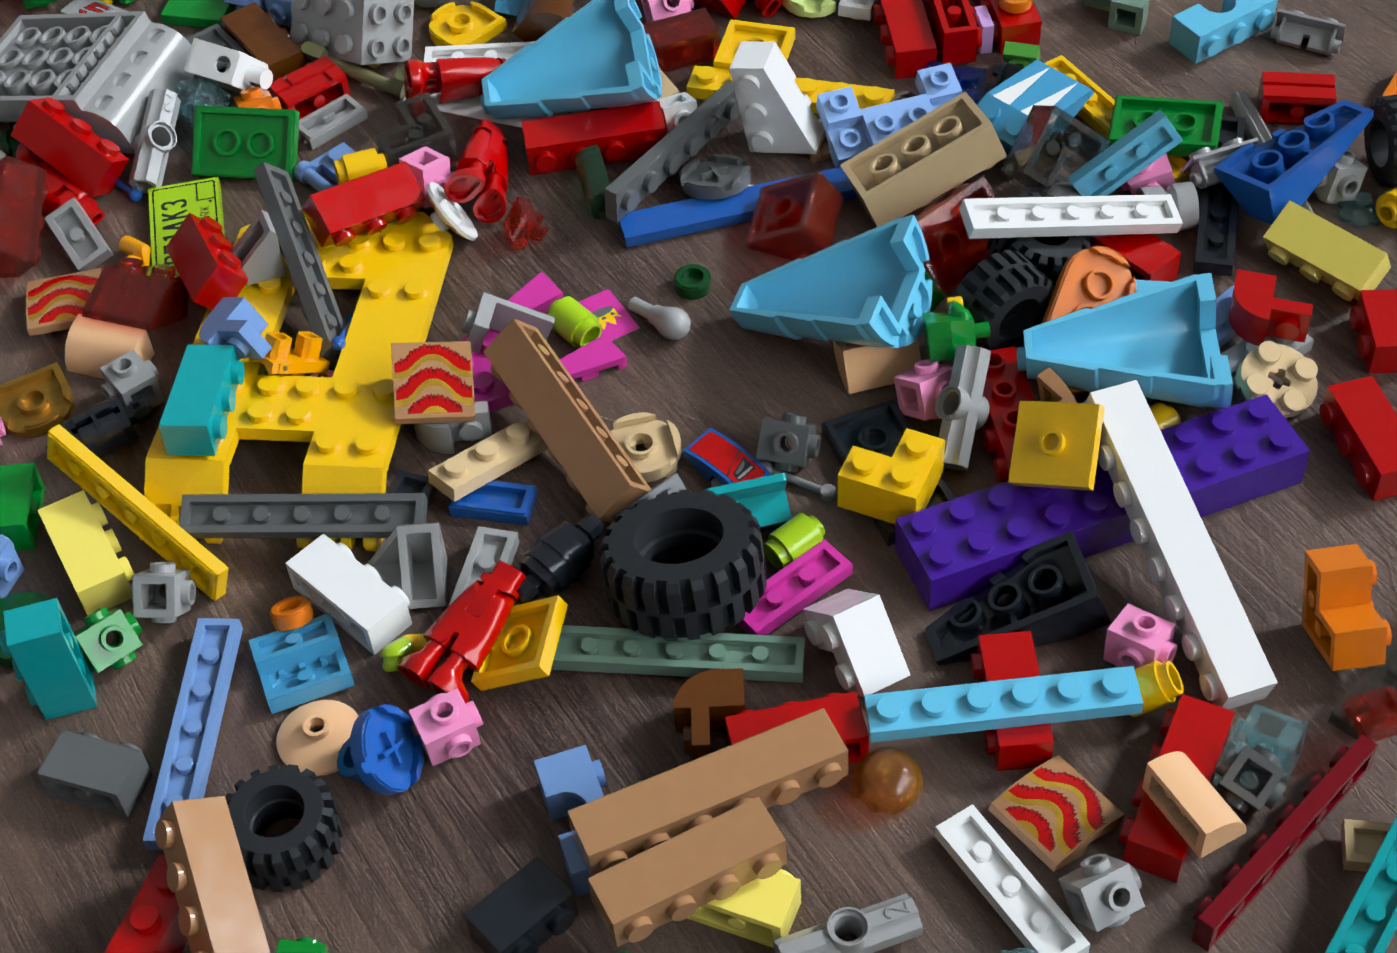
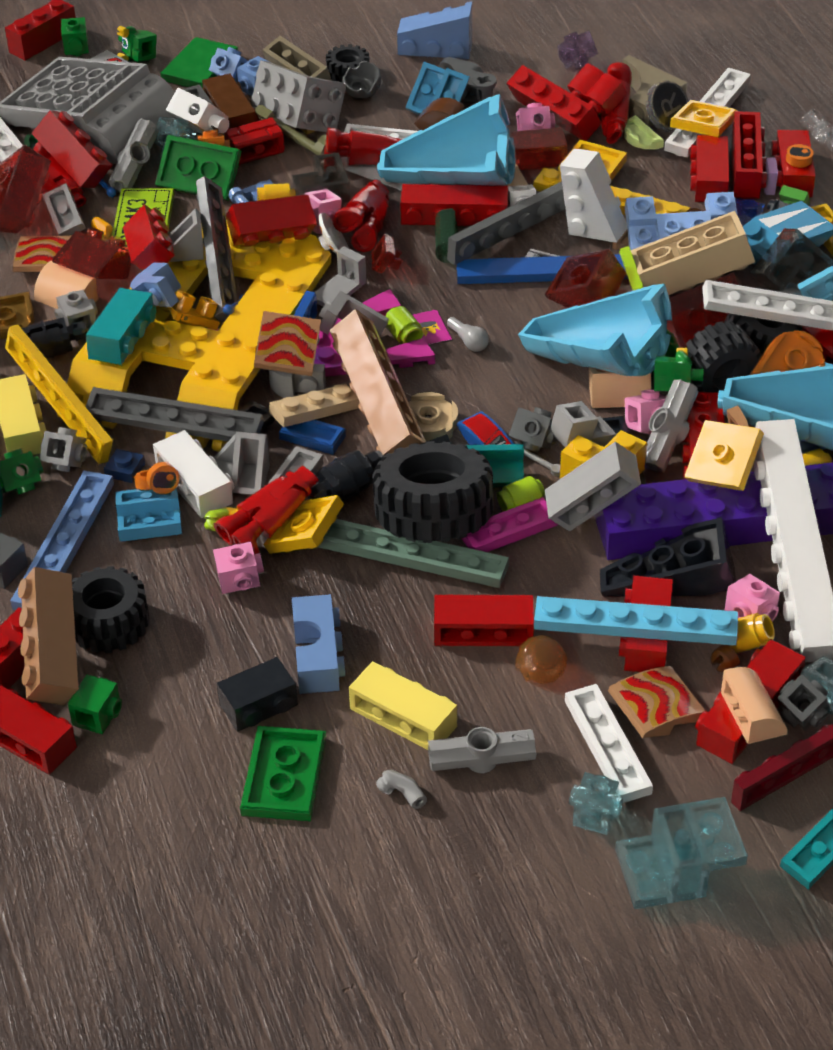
camera: 10 degrees right, 5 degrees down
(250, 597) = (124, 465): none -> dark blue plate
(311, 611) = (162, 478): none -> orange tile
(320, 749) = (151, 561): light nougat dish -> none
(331, 121) = (264, 164): light grey tile -> none
(382, 751) = (189, 574): blue tile -> none
(441, 321) = (307, 306): none -> blue tile
(465, 24) = (382, 113): yellow tile -> none
(484, 268) = (349, 278): none -> light grey bracket
(688, 872) = (378, 681): medium nougat brick -> none
(692, 281) = (499, 314): dark green tile -> none
(704, 704) = (419, 588): reddish brown brick -> none
(716, 178) = (536, 247): dark grey tile -> none
(768, 765) = (407, 636): medium nougat brick -> none
(846, 426) = (577, 419): none -> light grey brick
(852, 197) = (630, 268): none -> lime tile
(861, 638) = (546, 562): white brick -> none
(894, 519) = (592, 486): none -> light grey brick
(1102, 892) = (672, 754): light grey brick -> none
(1127, 729) = (725, 657): none -> reddish brown hinge

